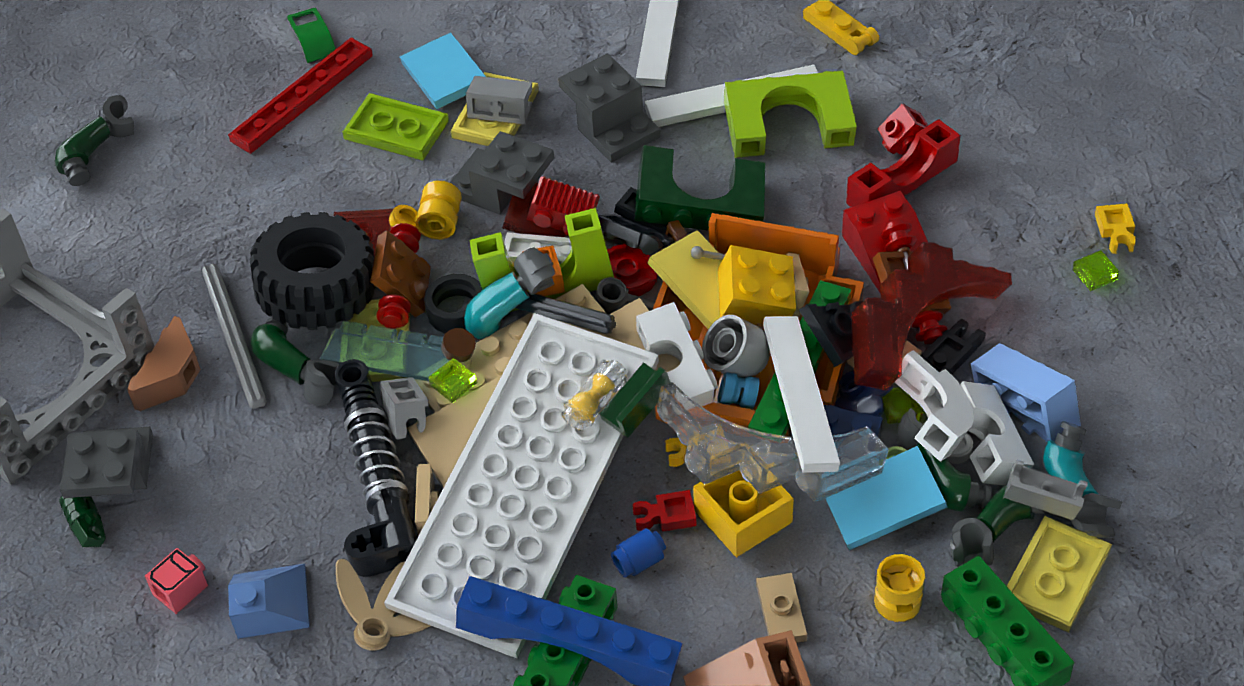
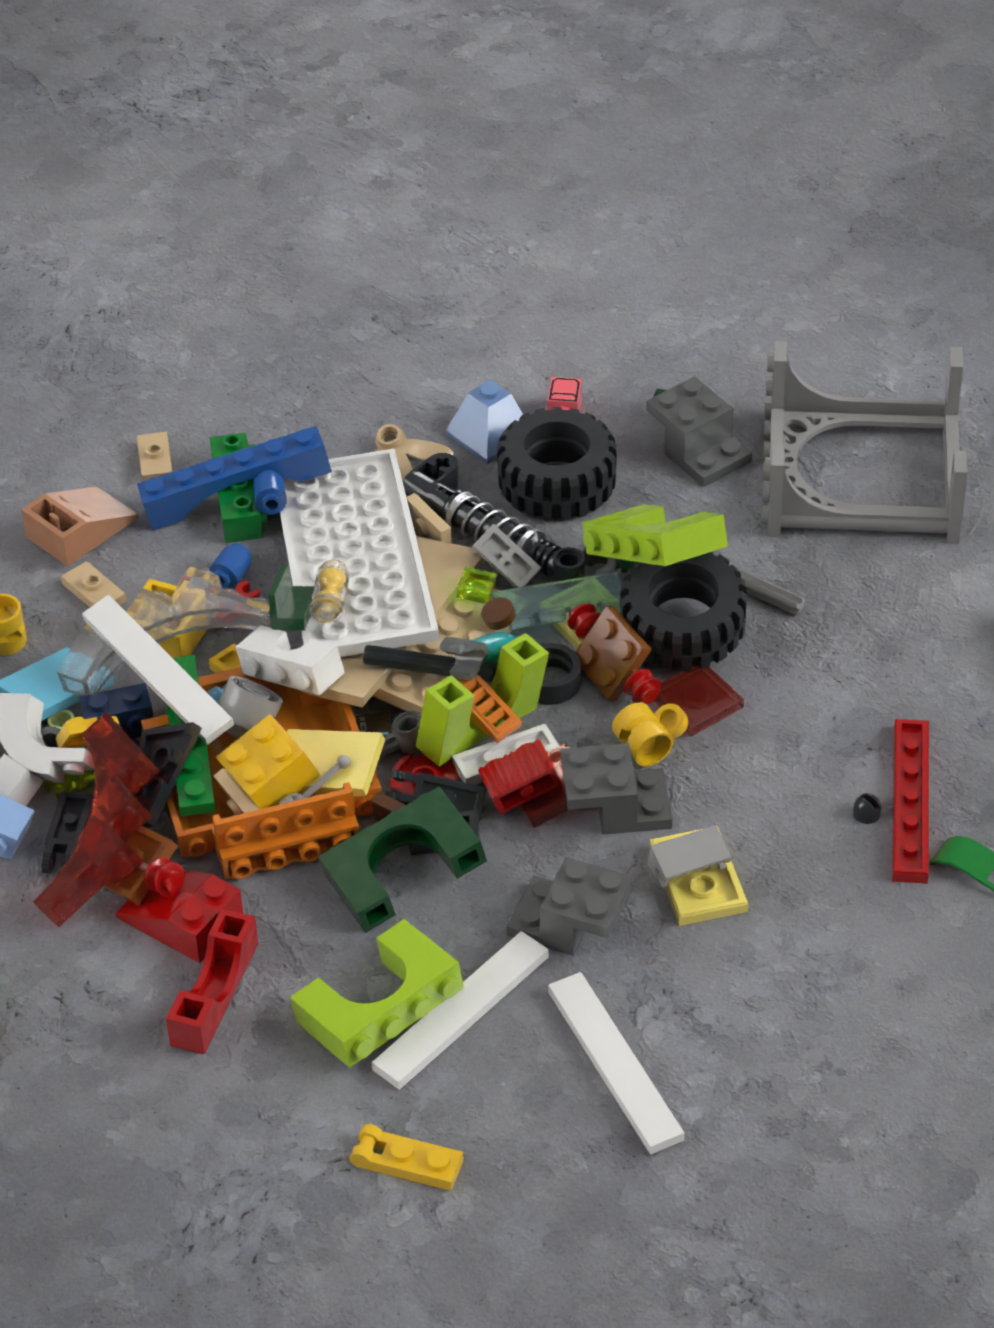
camera: 145 degrees right, 5 degrees down
(166, 369) = (742, 518): nougat slope -> none
(267, 525) = (559, 489): none -> black tyre
(313, 332) = (646, 537): none -> lime arch
(339, 106) = (867, 808): none -> black hinge
(395, 126) = (780, 812): lime tile -> none
(441, 69) = (789, 881): medium azure tile -> none
(553, 580) = (269, 492): none -> blue brick
(894, 392) = (71, 732): none -> yellow plate
(901, 129) = (238, 1027): red brick -> none

